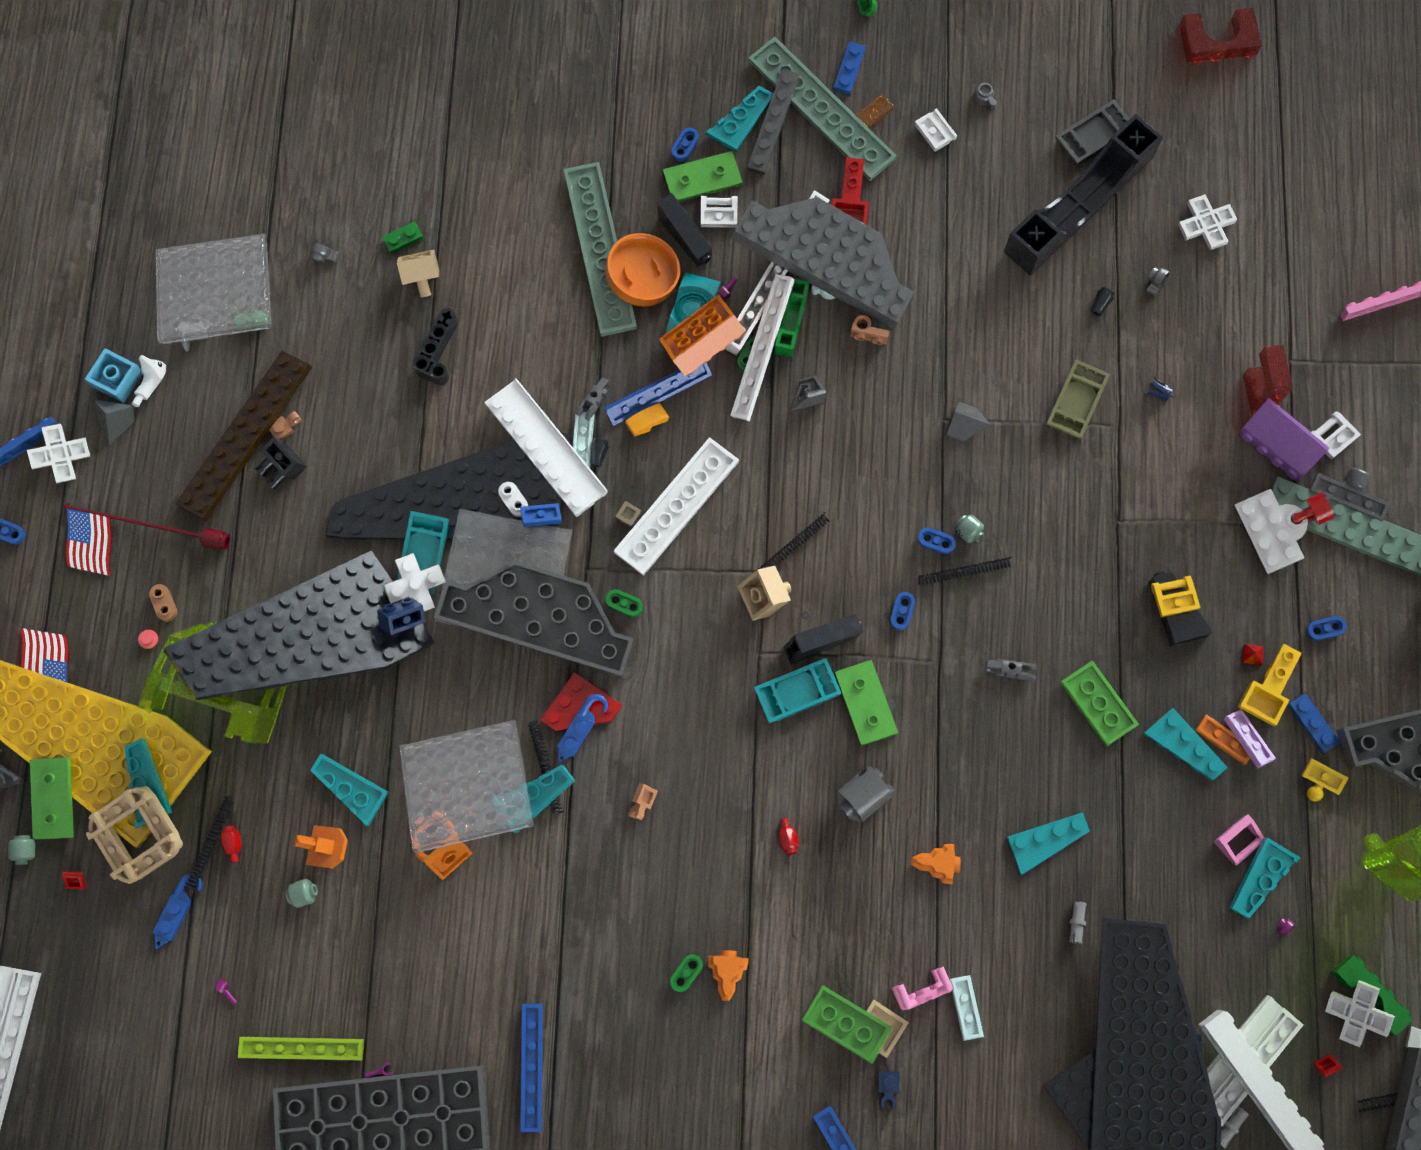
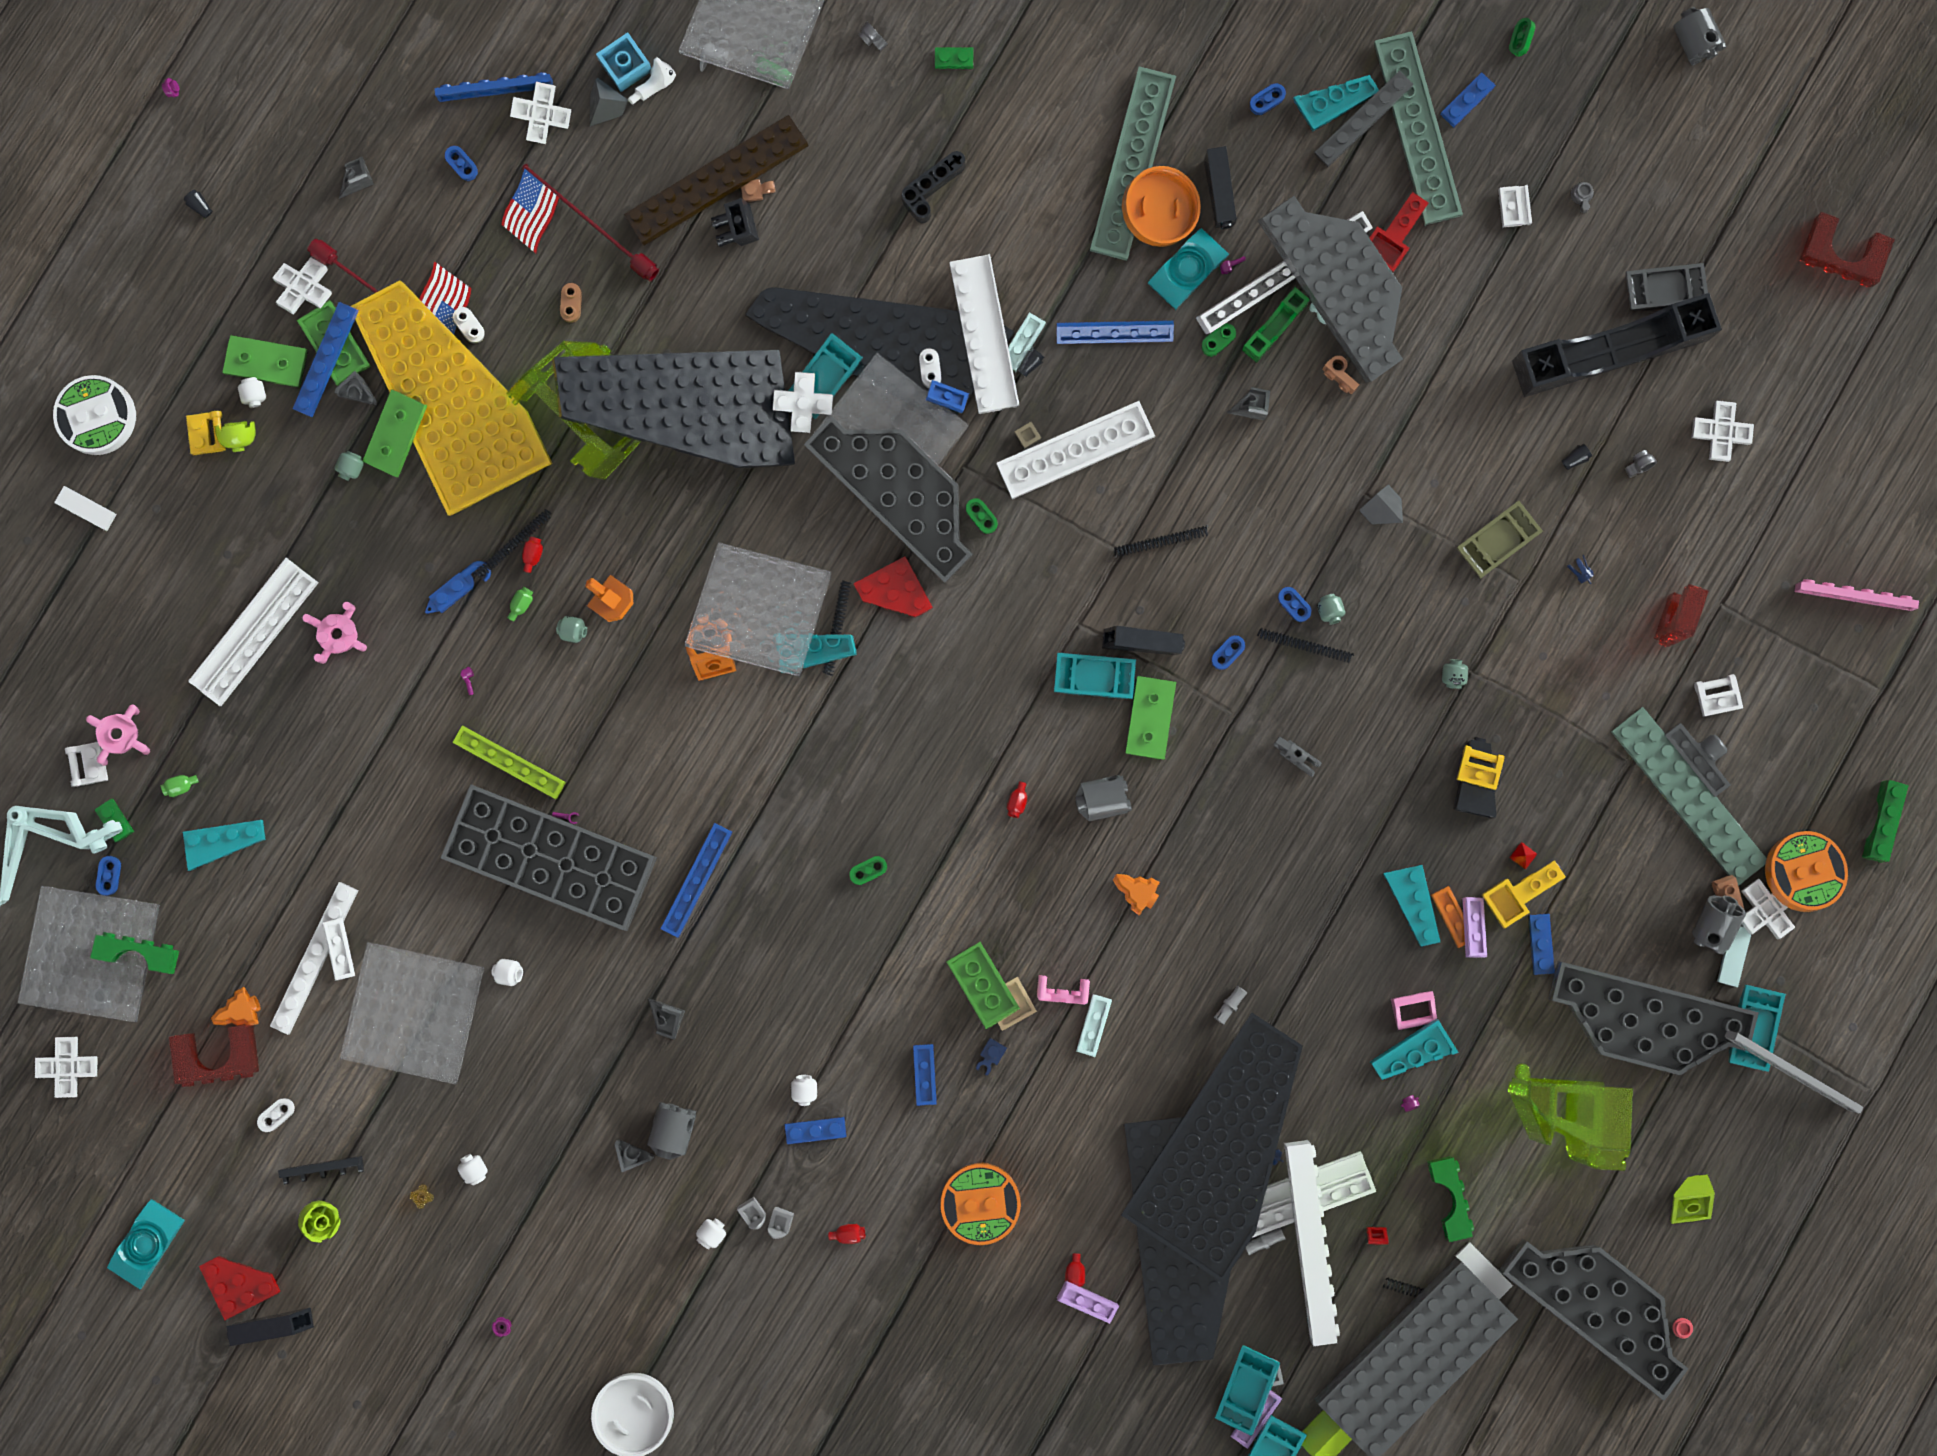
camera: 30 degrees right, 10 degrees up
(68, 1009) = (328, 625): none -> bright pink plate
(74, 880) = (382, 516): red slope -> none
(76, 668) = (468, 325): none -> white plate
(102, 830) = (428, 509): tan plate -> none
(144, 773) = (480, 472): teal wing -> none
(148, 639) = (542, 330): coral plate -> none
(241, 893) = (520, 602): none -> bright green plant
(352, 789) = (660, 564): teal wing -> none
(401, 616) = (776, 427): dark blue brick -> none
(418, 269) = (953, 100): tan brick -> none
(579, 728) = (884, 609): blue plate -> none
(593, 399) = (1052, 309): dark grey hinge -> none
(644, 799) = (908, 700): nougat plate -> none
(646, 419) = (1090, 353): light orange slope -> none
(702, 335) = (1181, 301): orange slope -> none
(703, 176) = (1267, 140): bright green plate -> none
(718, 215) = (1261, 188): white plate -> none
(727, 970) = (904, 887): orange rock -> none
(762, 347) = (1232, 340): white plate -> none
(764, 593) = (1111, 572): tan brick -> none
(875, 111) = (1467, 157): clear orange plate -> none
(1042, 842) = (1235, 920): teal wing -> none
(1099, 703) = (1358, 826): bright green plate -> none
(1106, 529) = (1455, 674): none -> sand green head
(1277, 528) = (1612, 753): white plate -> none
(1283, 440) = (1663, 677): medium lavender slope -> none
(1323, 777) = (1520, 995): yellow plate -> none
(1325, 628) = (1602, 867): blue plate -> none
(1359, 1013) = (1429, 1207): white plate -> none

